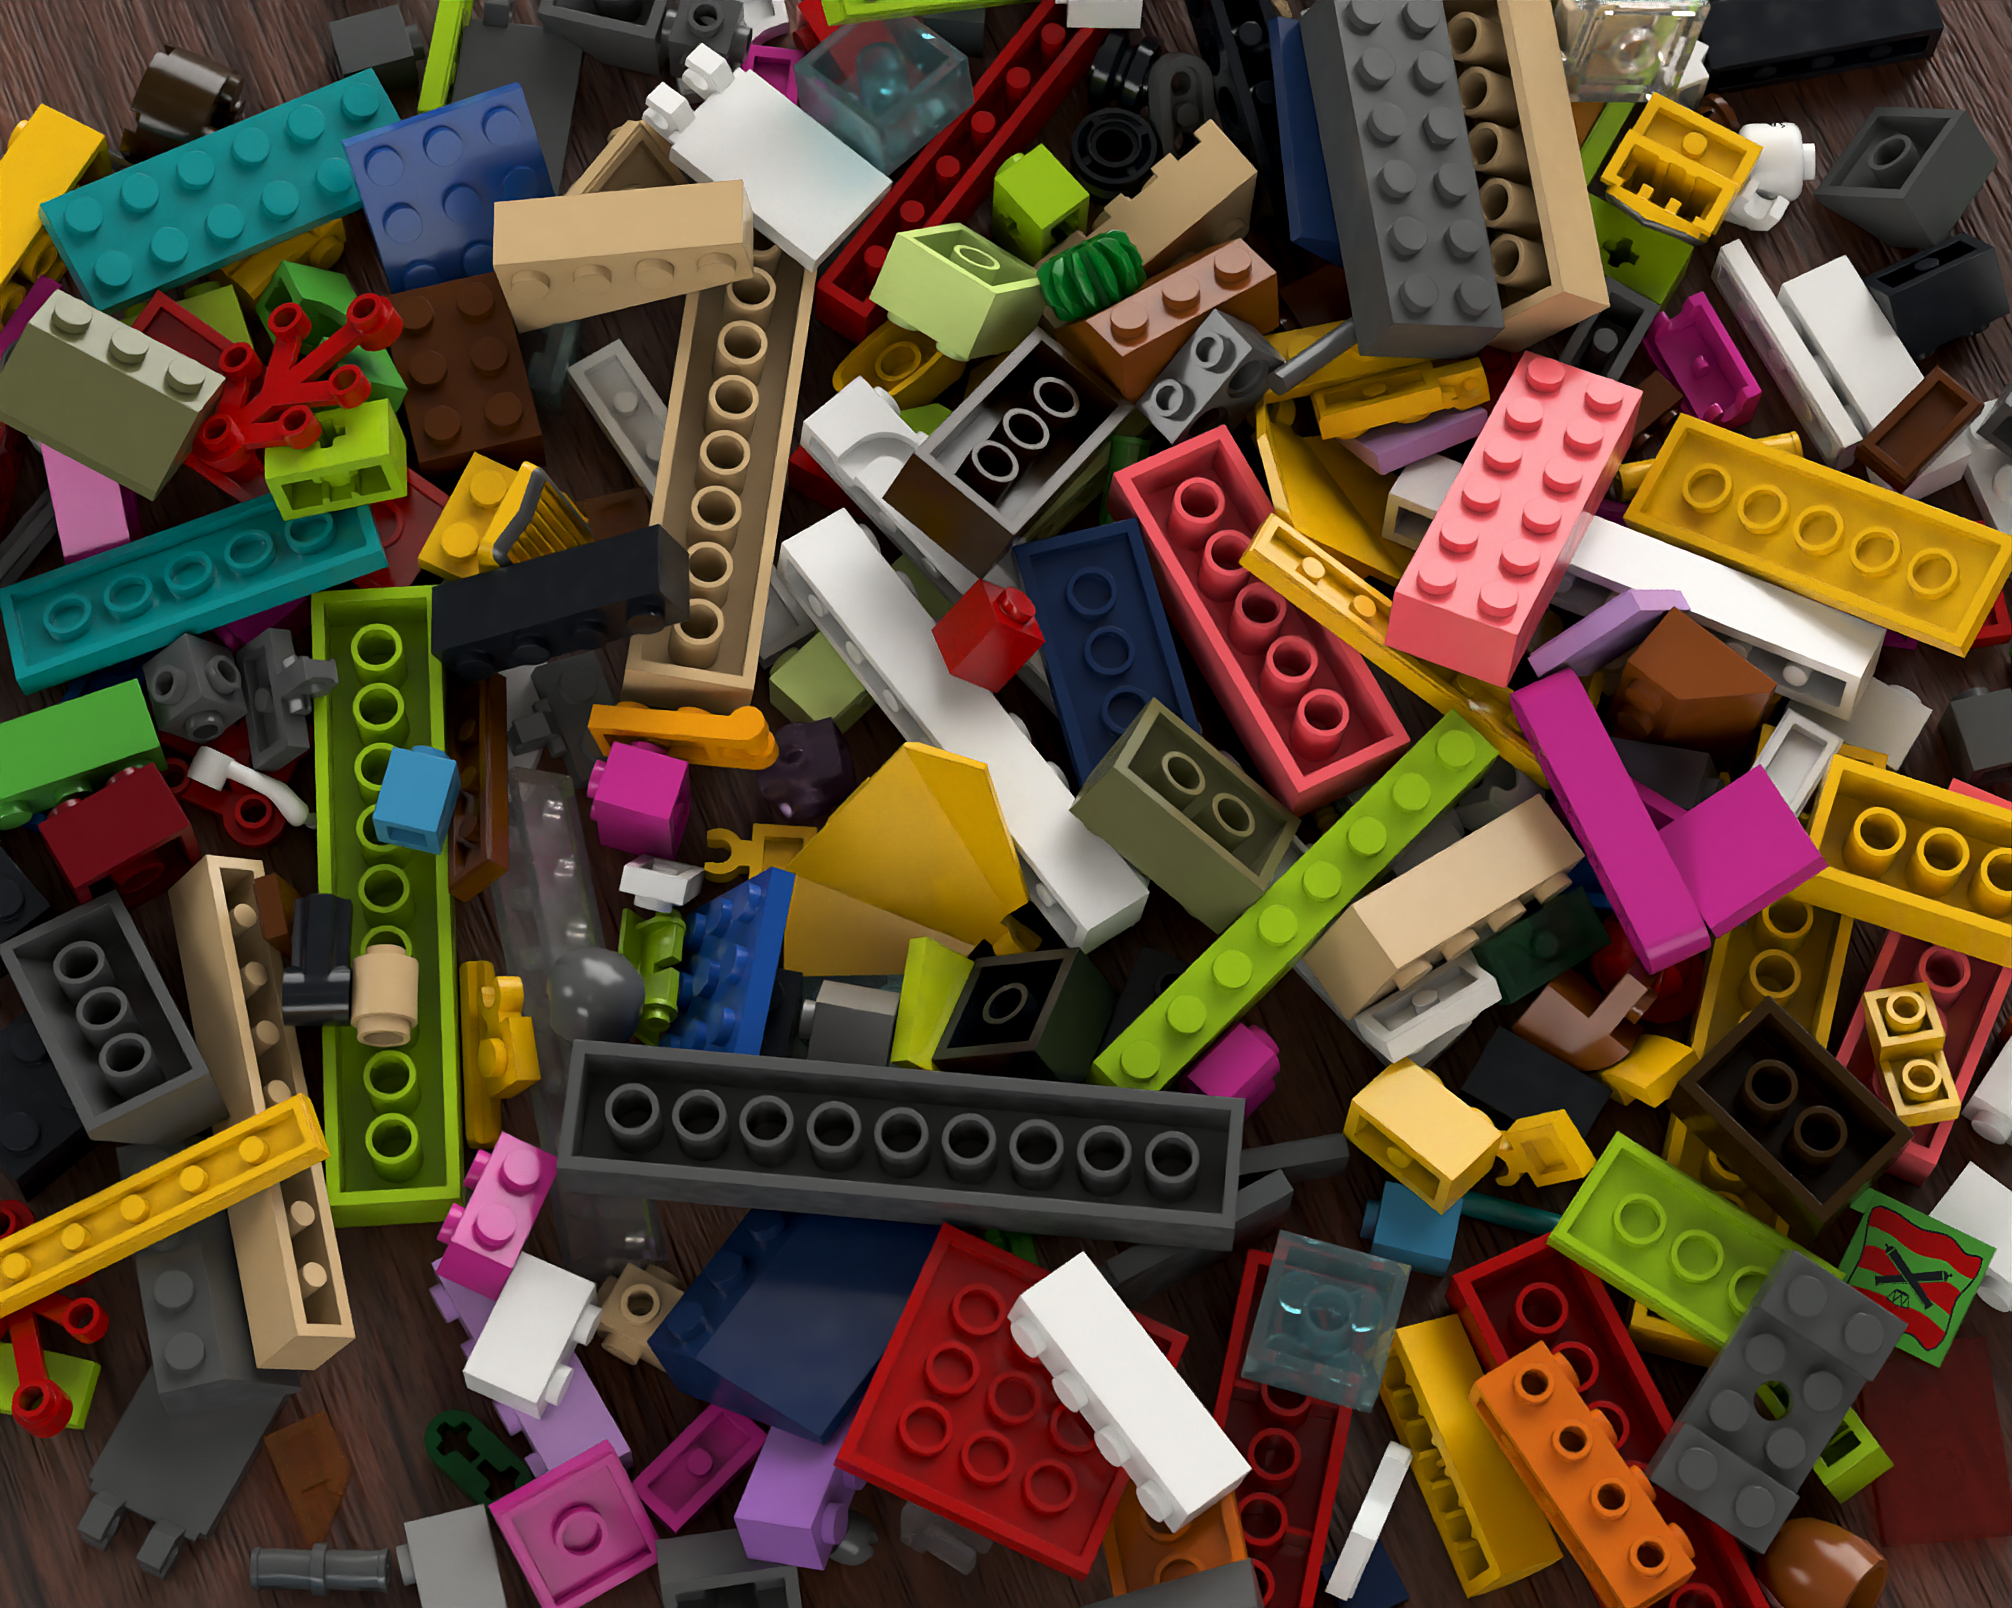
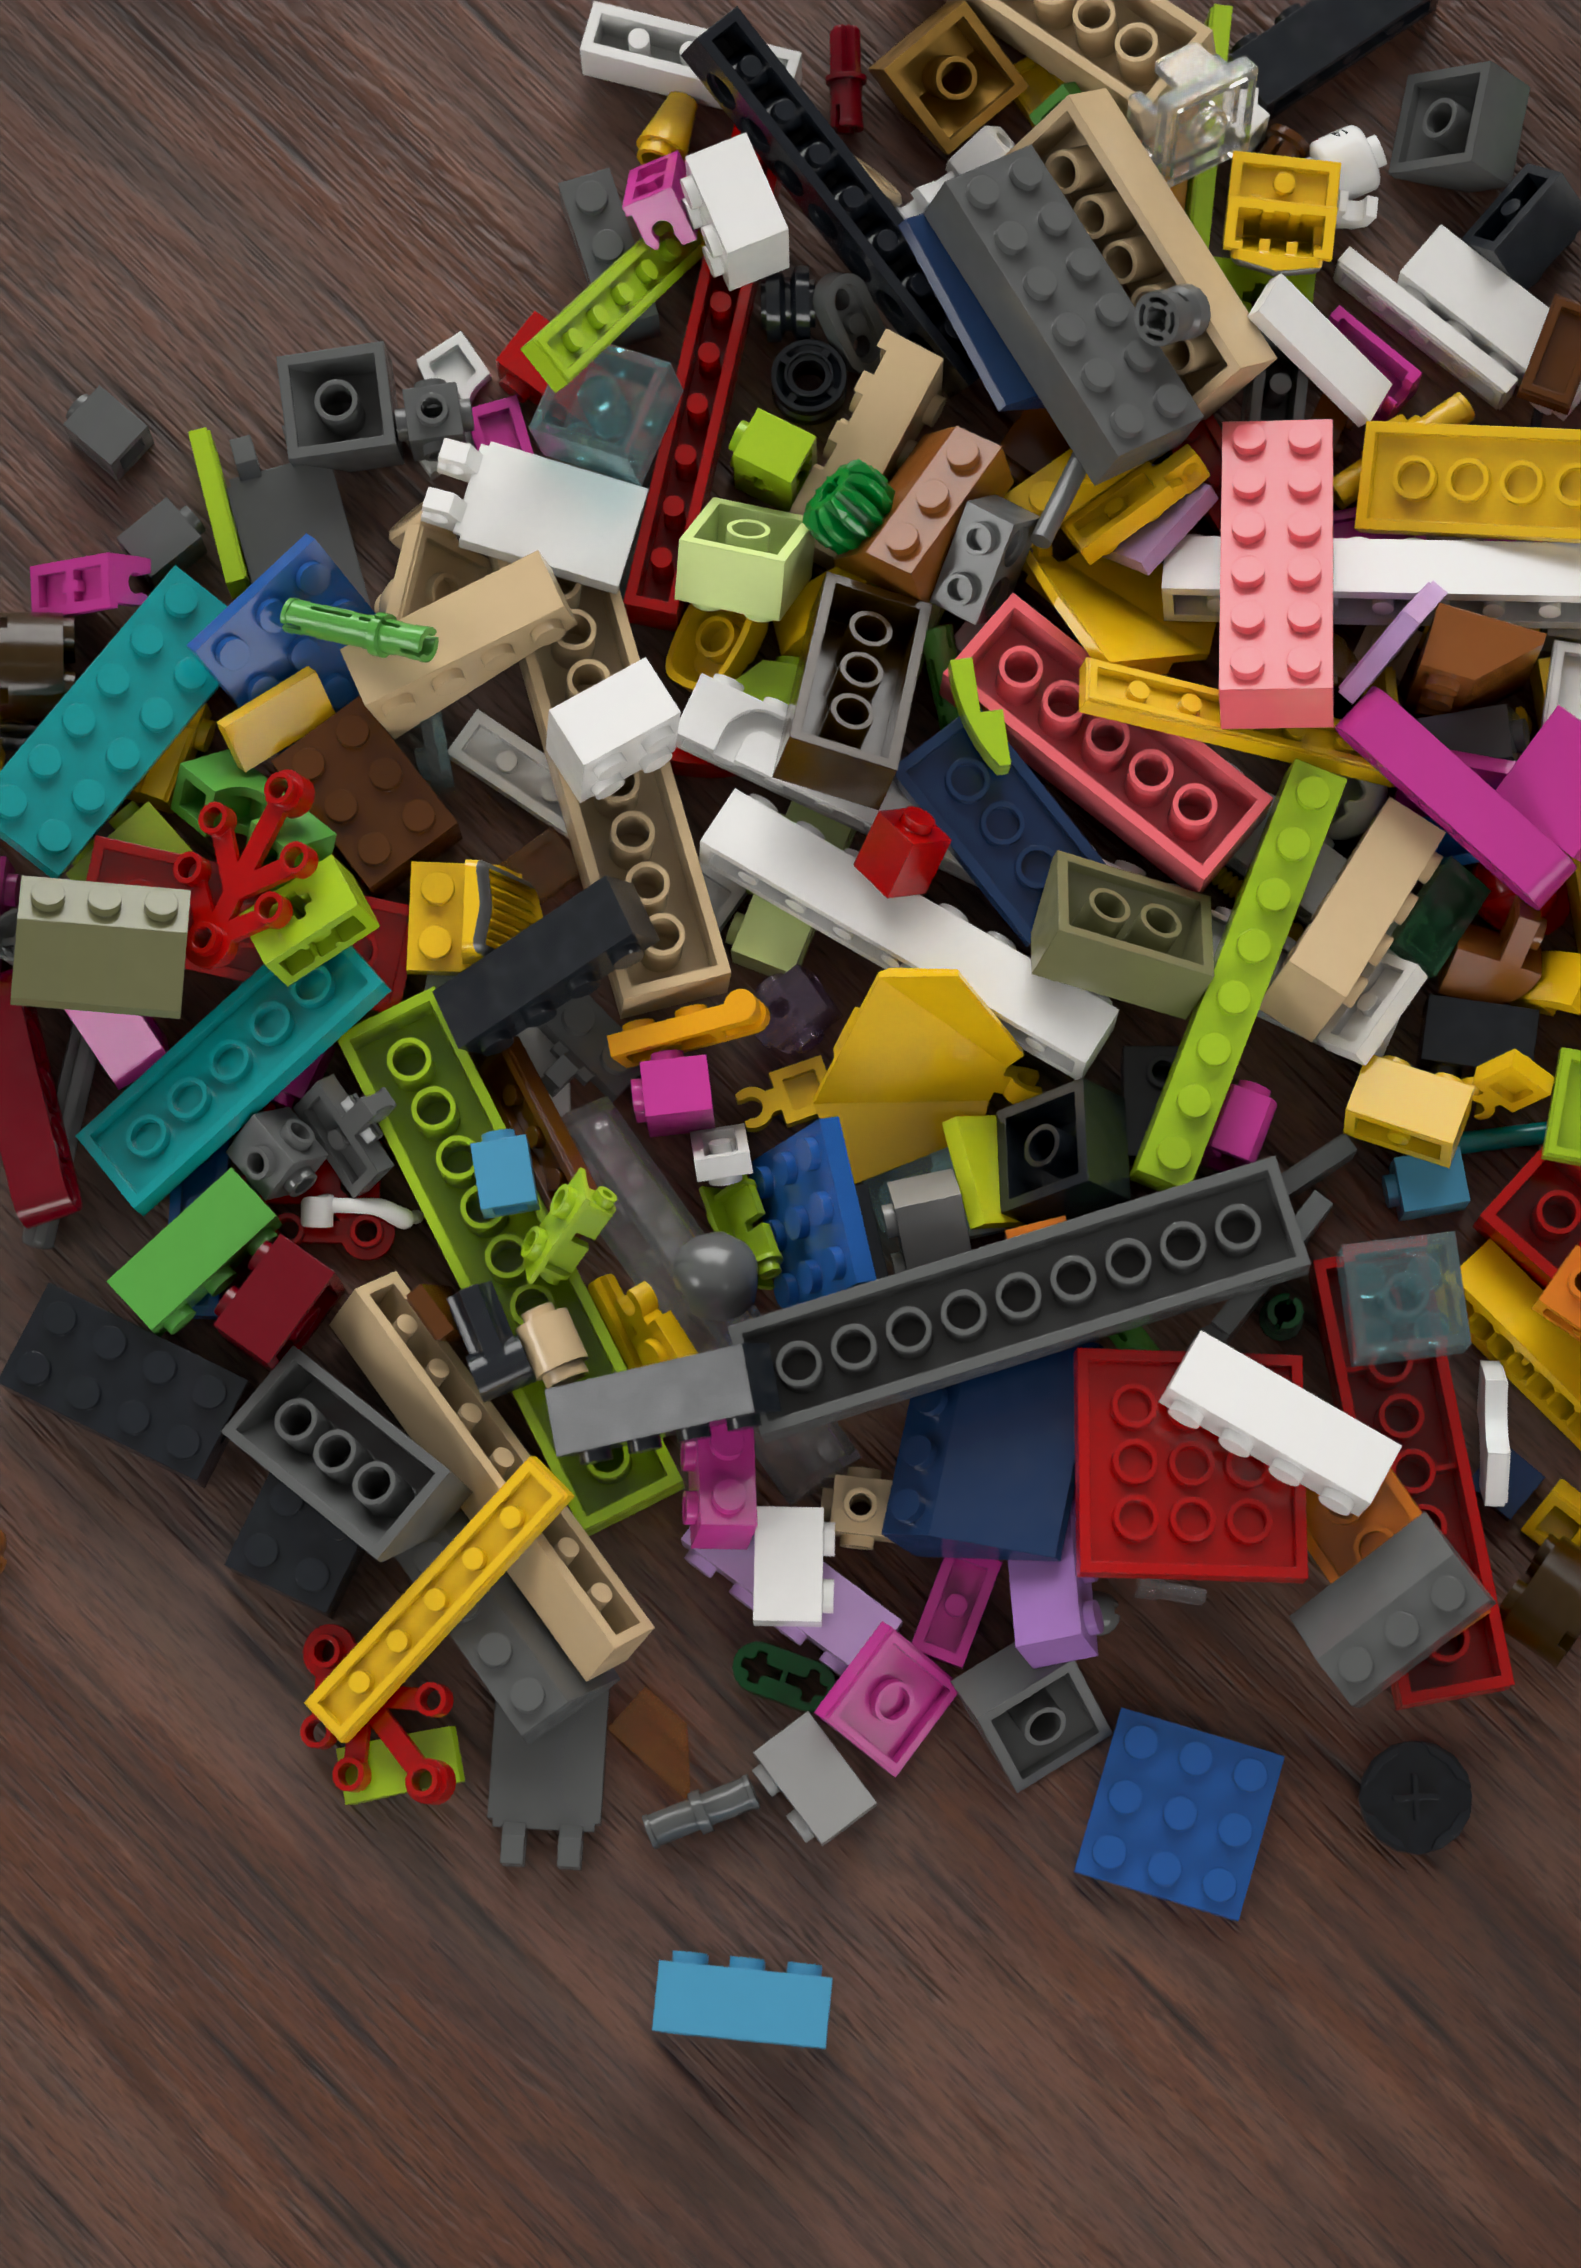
camera: 15 degrees left, 10 degrees up
(276, 51) = (87, 584): none -> dark pink hinge
(401, 256) = (276, 719): none -> yellow tile
(469, 1091) = (662, 1401): none -> brick
(471, 861) = (552, 1246): none -> lime hinge
(537, 196) = (377, 633): none -> bright green pin
(737, 389) = (613, 731): none -> white brick
(1130, 536) = (984, 728): none -> lime slope
(1192, 1317) = (1268, 1320): none -> dark green pin
(1513, 209) = (1172, 315): none -> dark grey wheel
(1660, 321) = (1319, 350): none -> white tile

